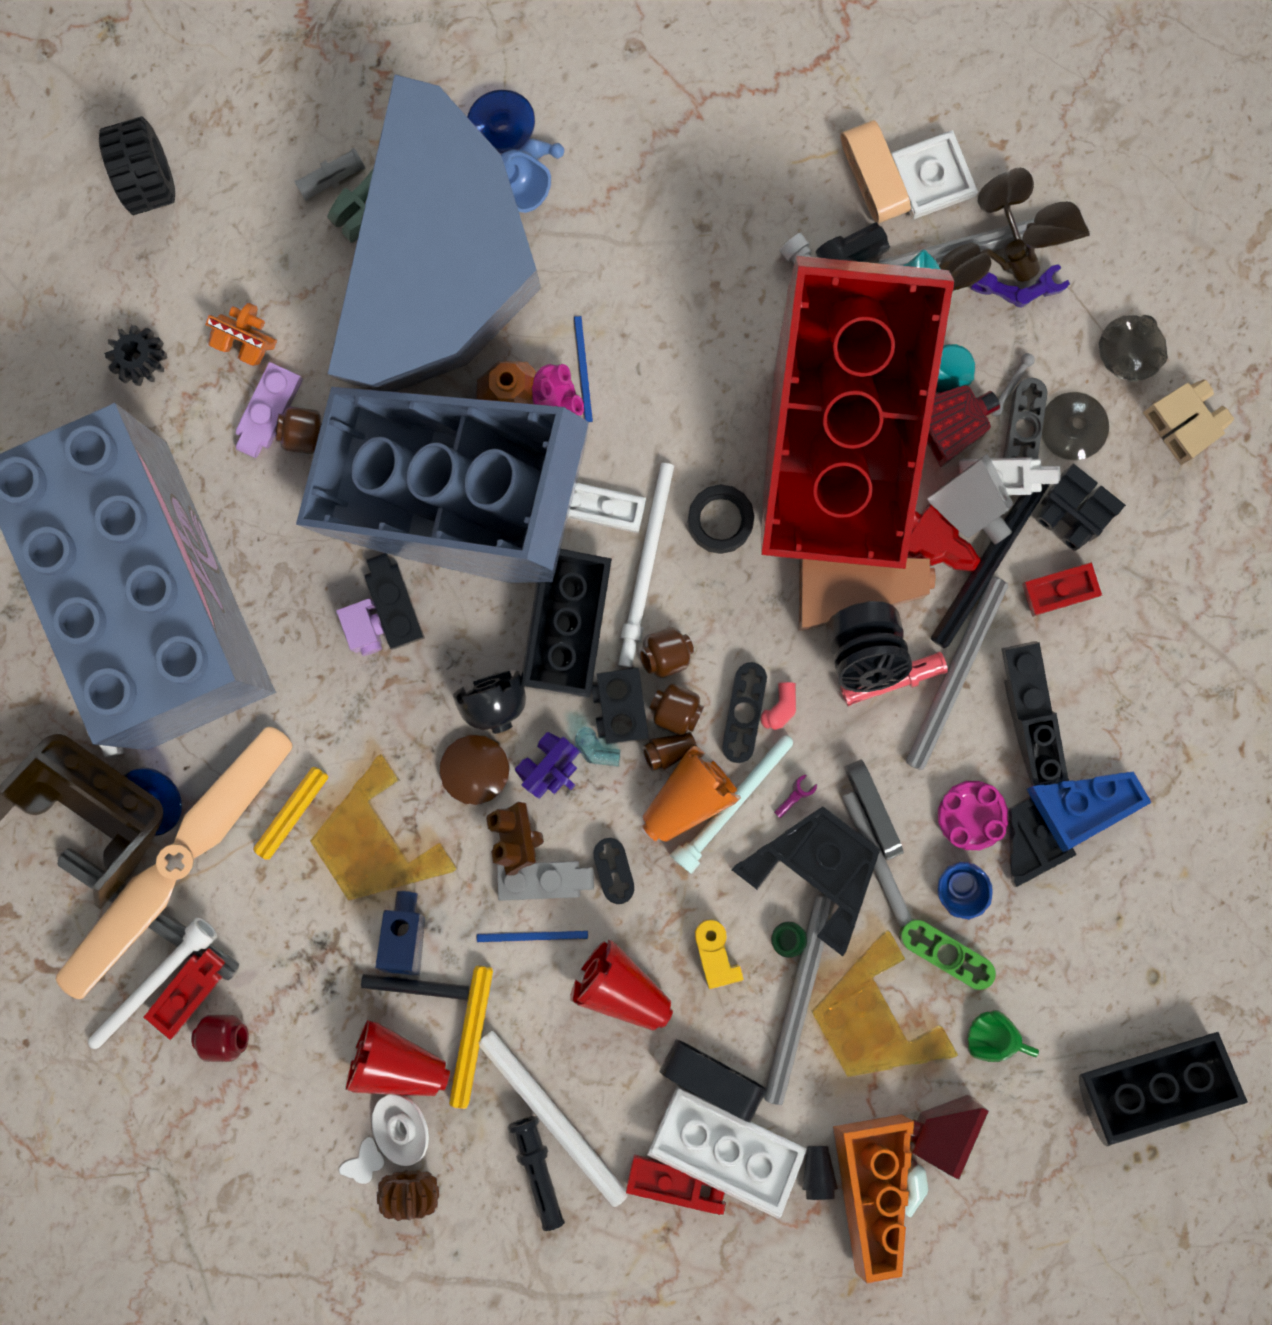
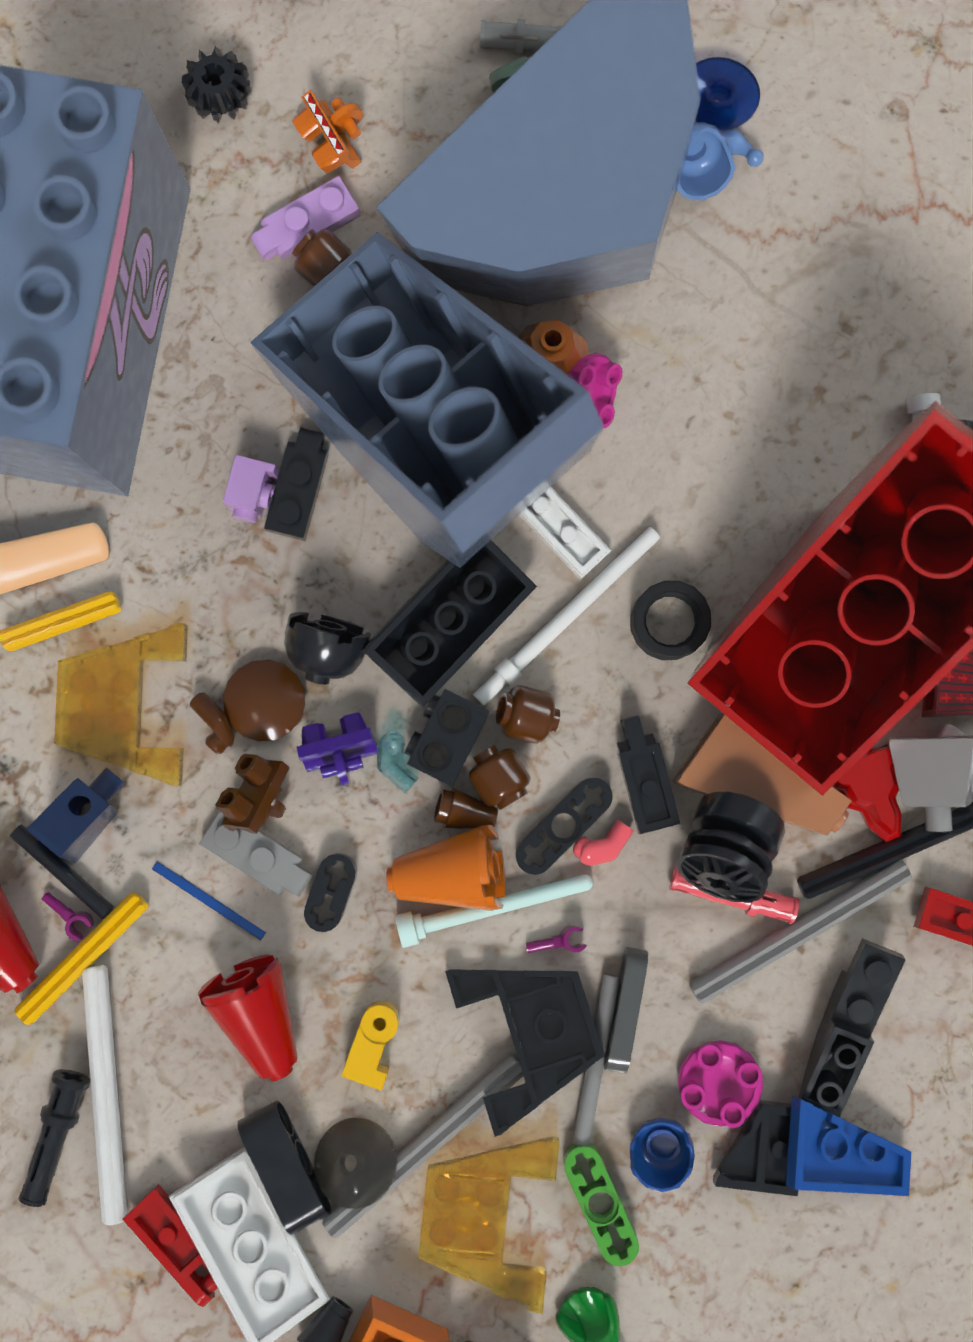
camera: 30 degrees right, 0 degrees up
(440, 1014) = (68, 916): none -> magenta hand
(451, 806) = (216, 720): none -> reddish brown arm
(583, 368) = (618, 418): blue piece -> none
(776, 1040) = (374, 1167): none -> clear smoke dish
(778, 640) = (646, 778): none -> black hinge
(789, 939) = (454, 1079): dark green plate -> none

